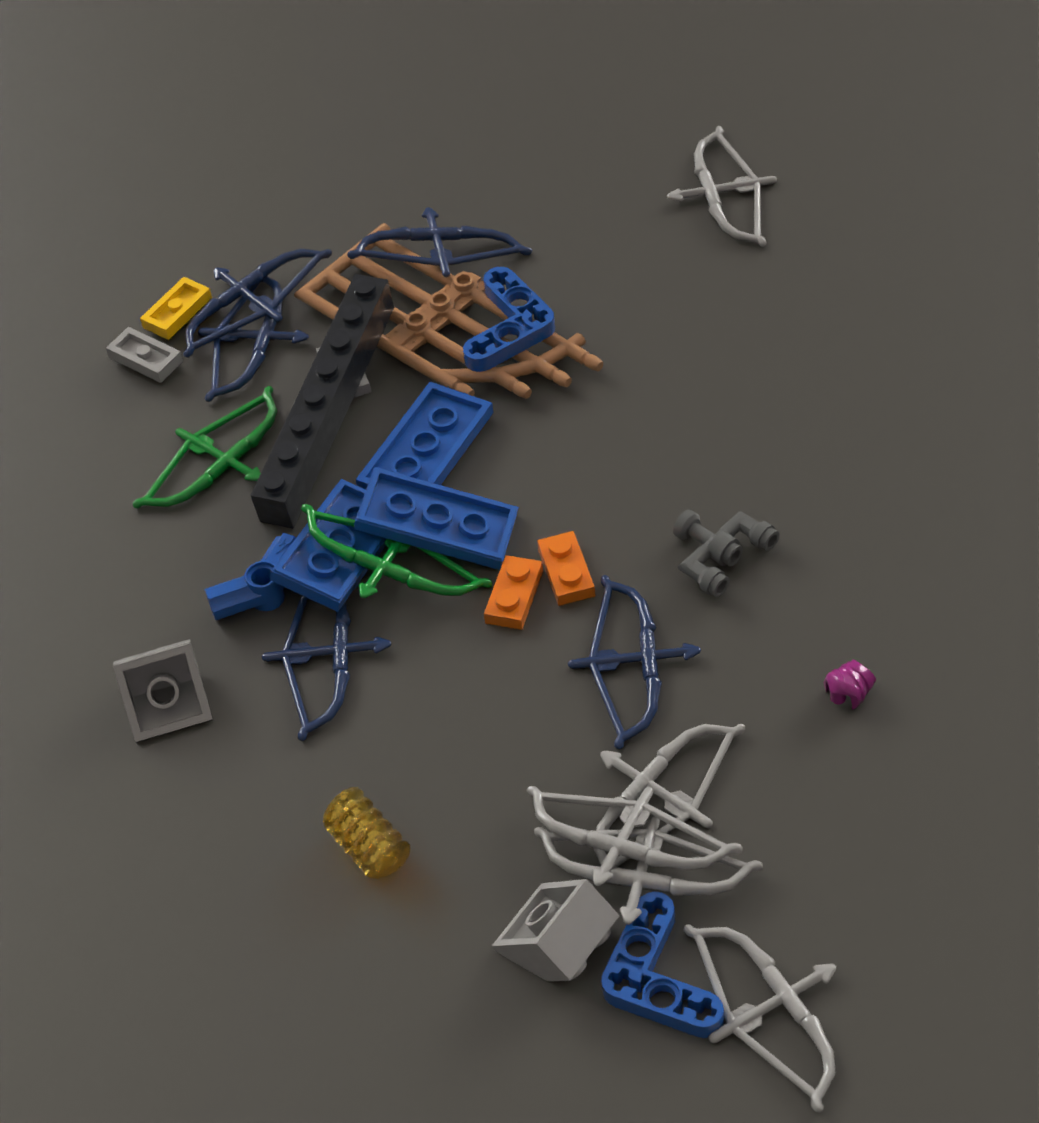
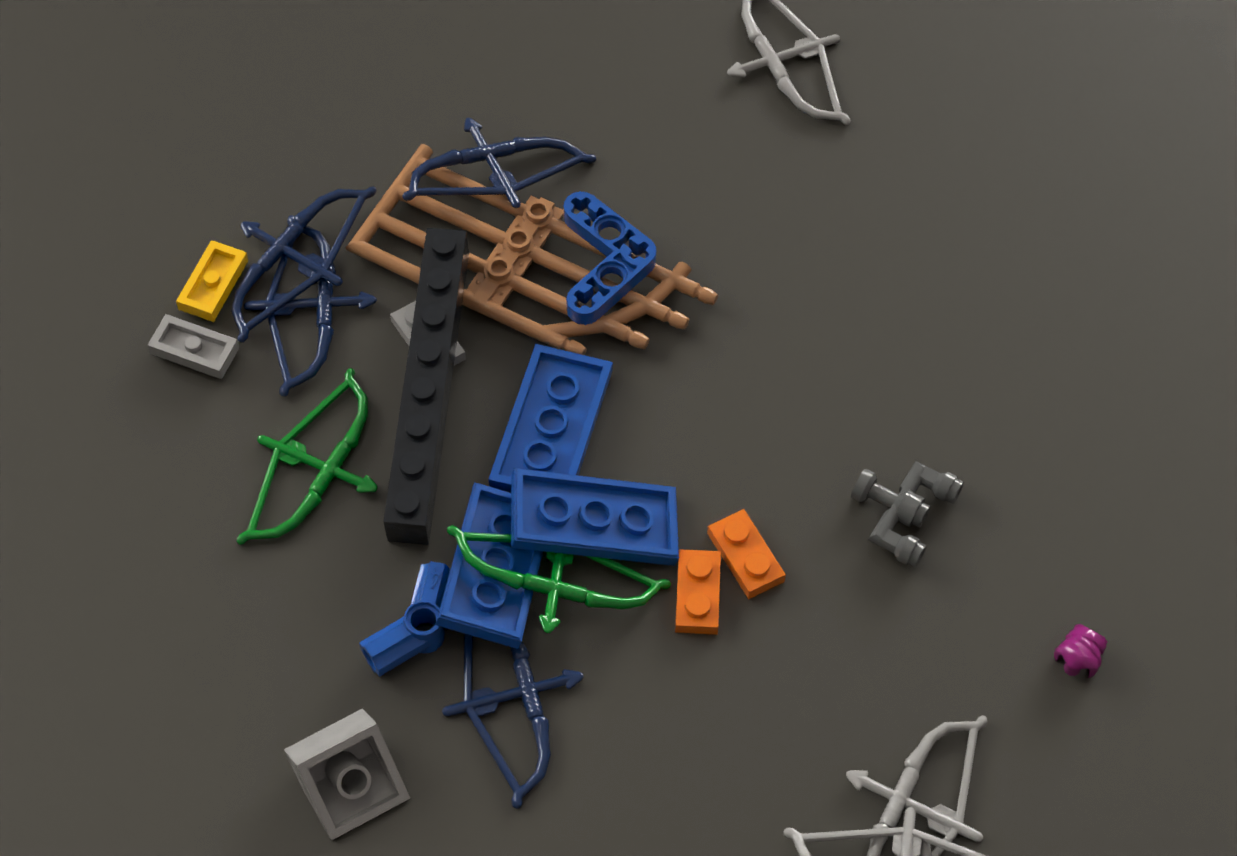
camera: 20 degrees left, 10 degrees up
(609, 659) = (822, 659): dark blue piece -> none

